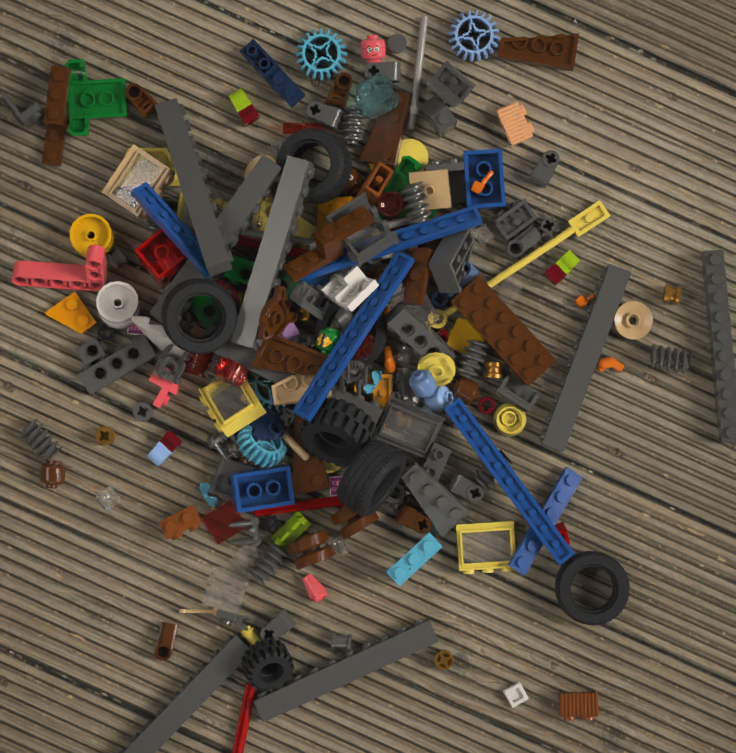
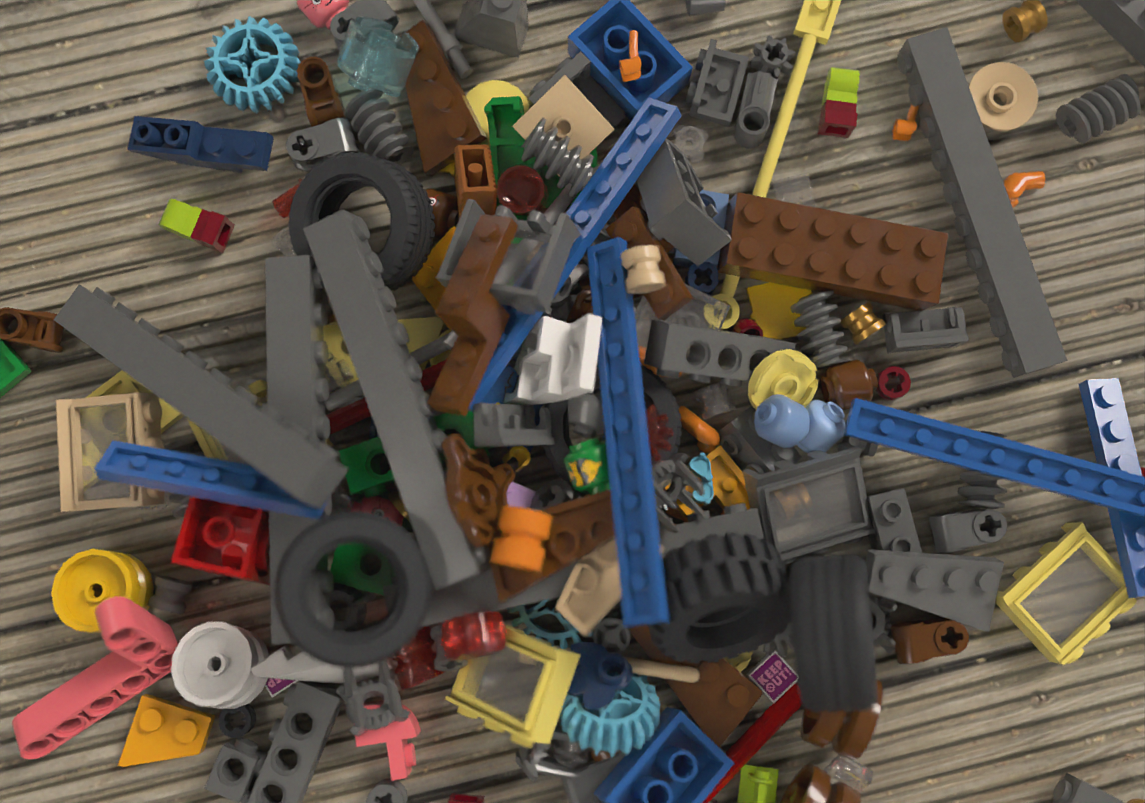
camera: 40 degrees left, 5 degrees down
(278, 348) = (521, 538): none -> orange wheel
(410, 278) = (642, 269): none -> tan wheel
(414, 559) = (996, 707): medium azure window -> none
(509, 419) = (942, 377): light yellow hat -> none

